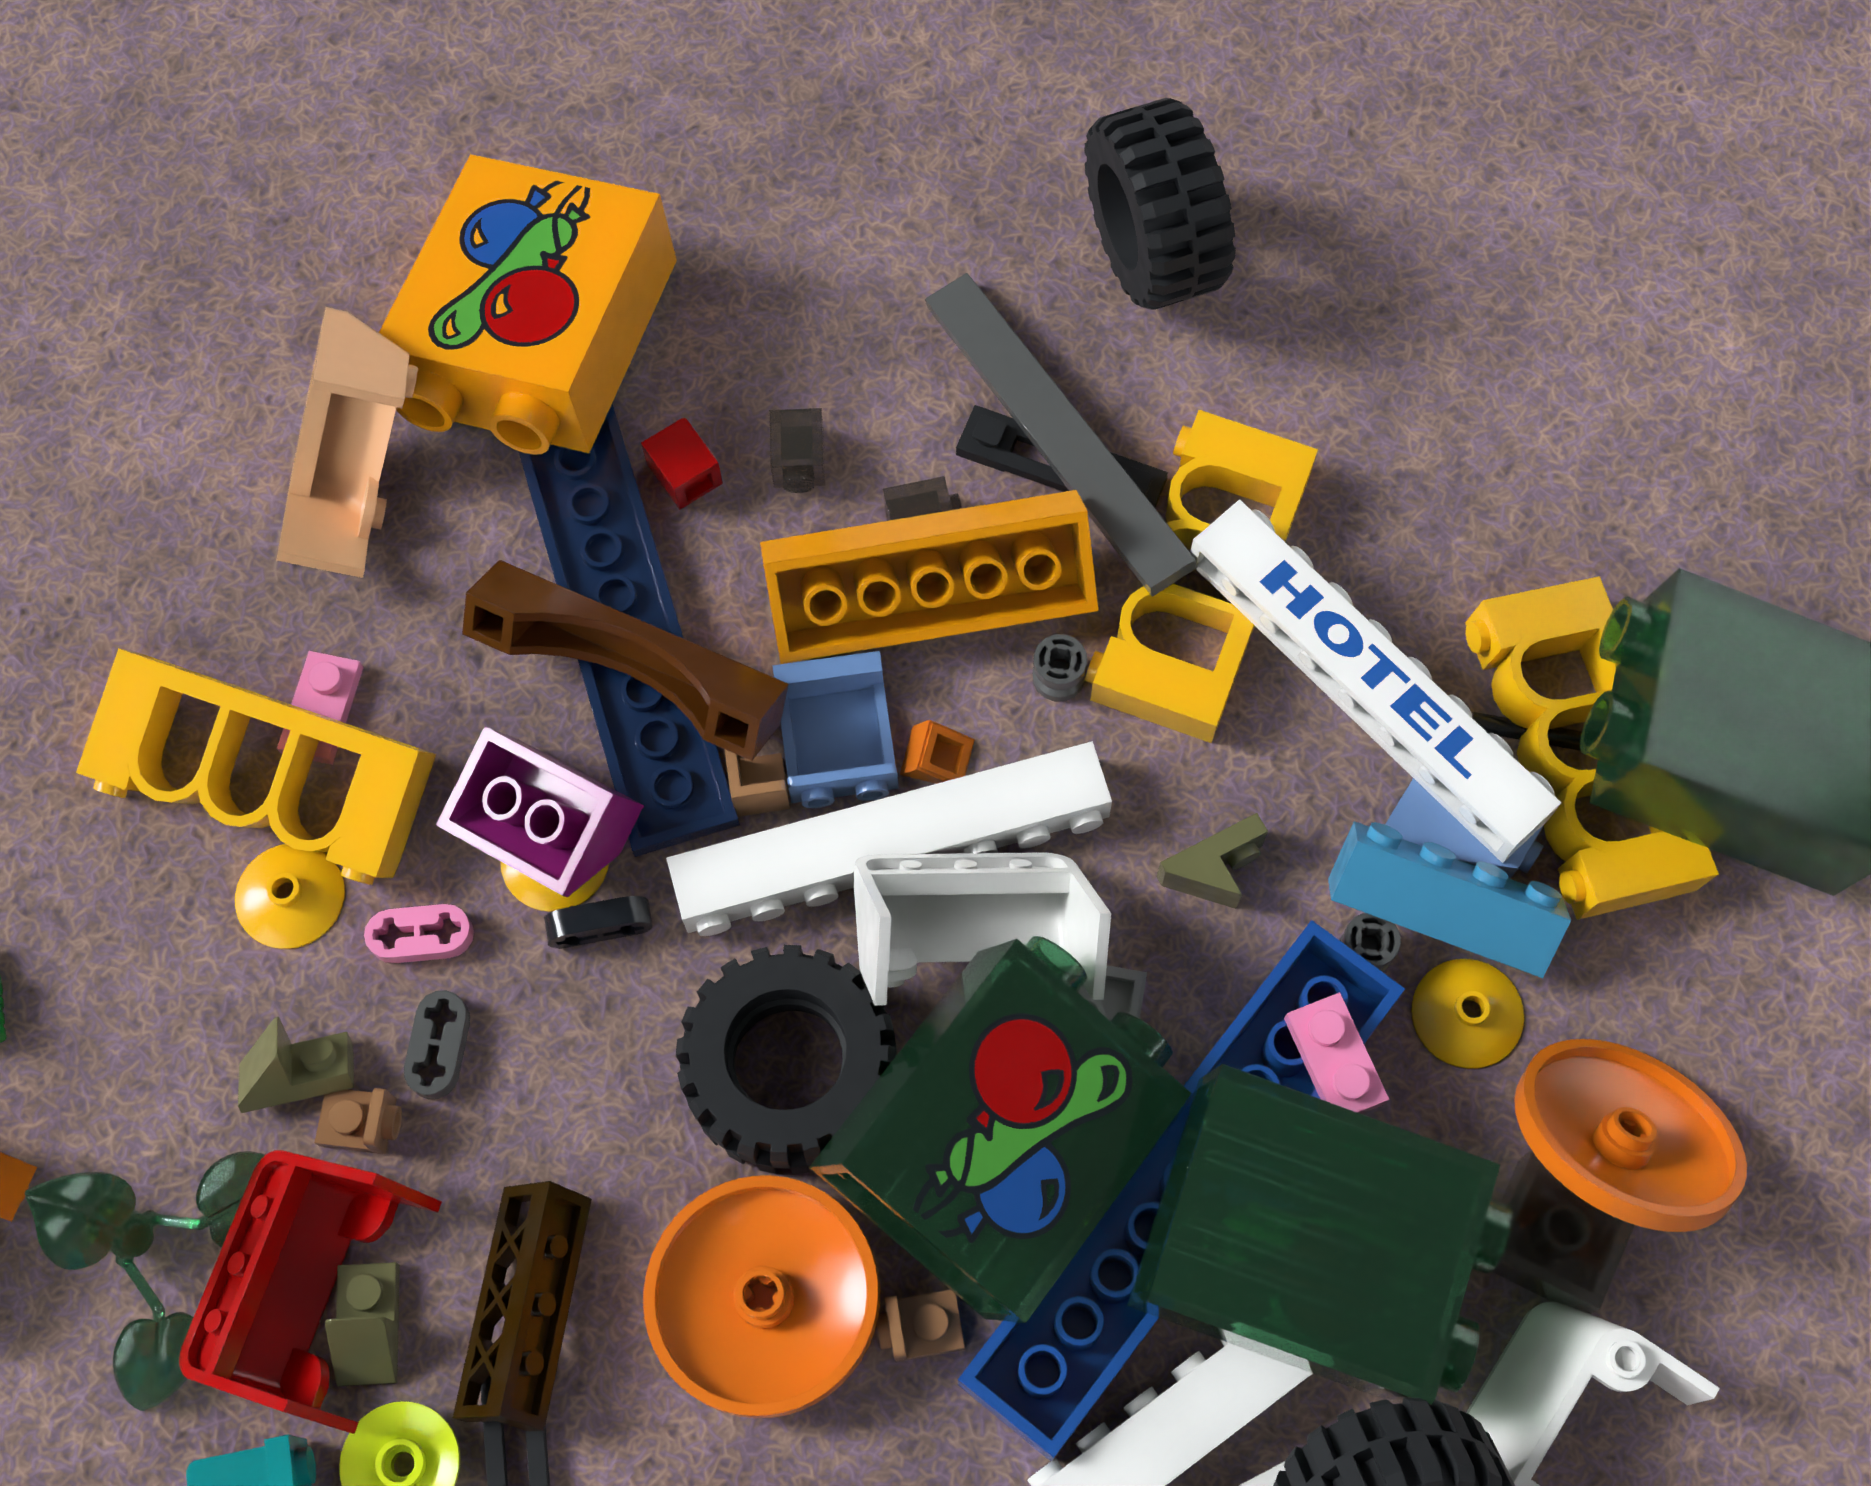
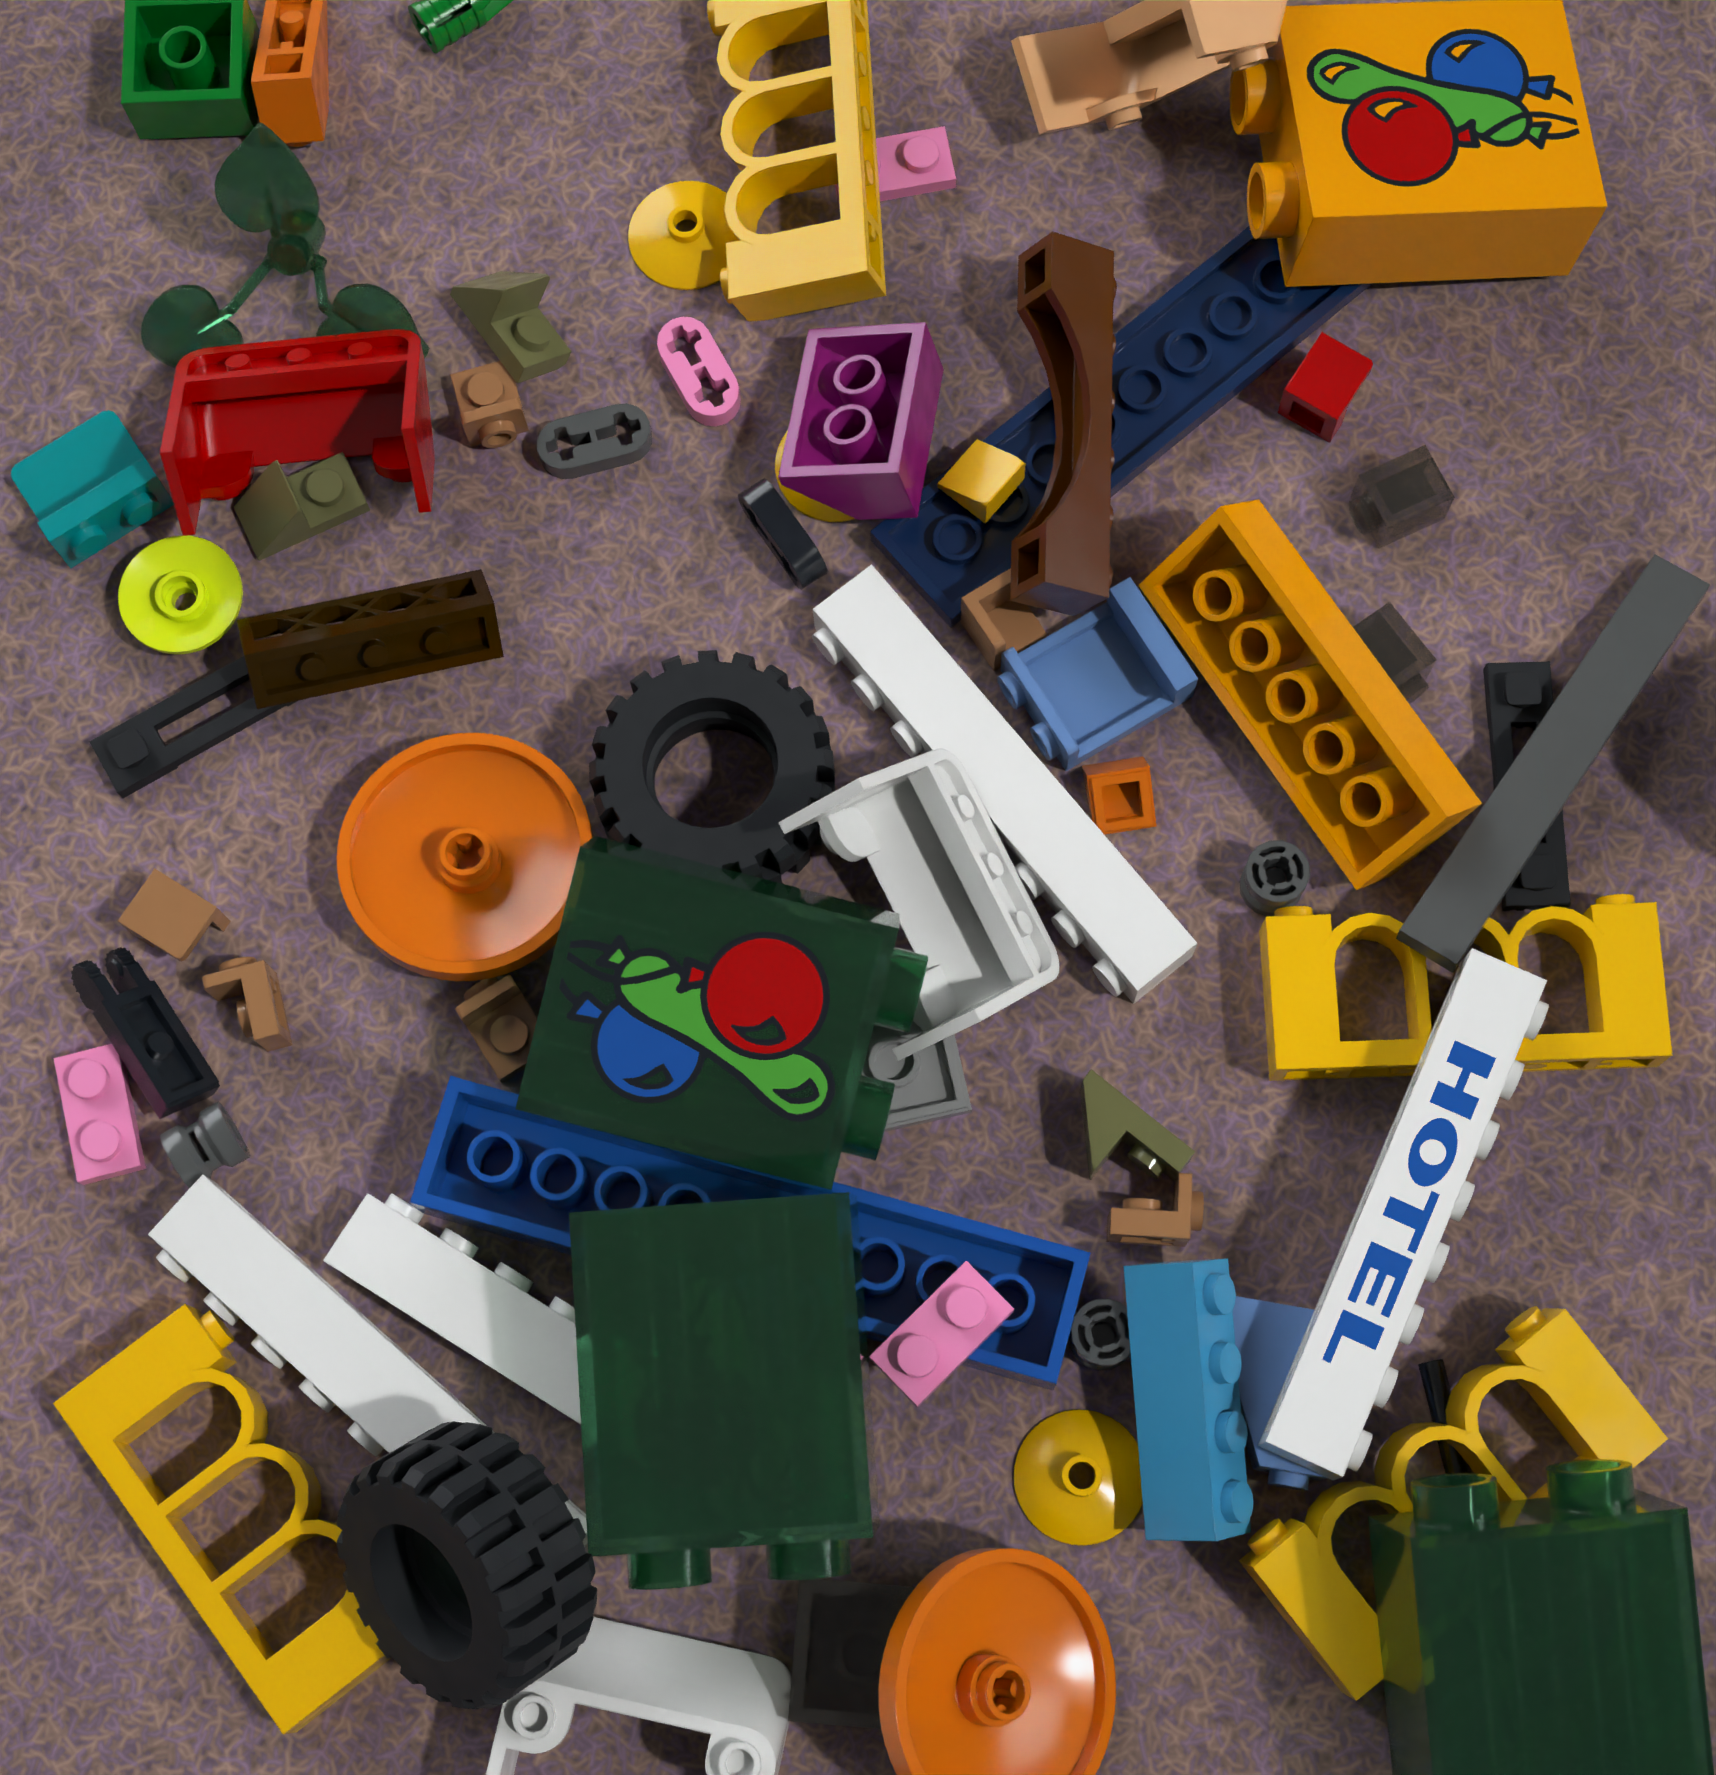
camera: 70 degrees right, 5 degrees up
(633, 743) = (983, 479): none -> yellow slope
(1291, 876) = (1145, 1222): none -> medium nougat bracket

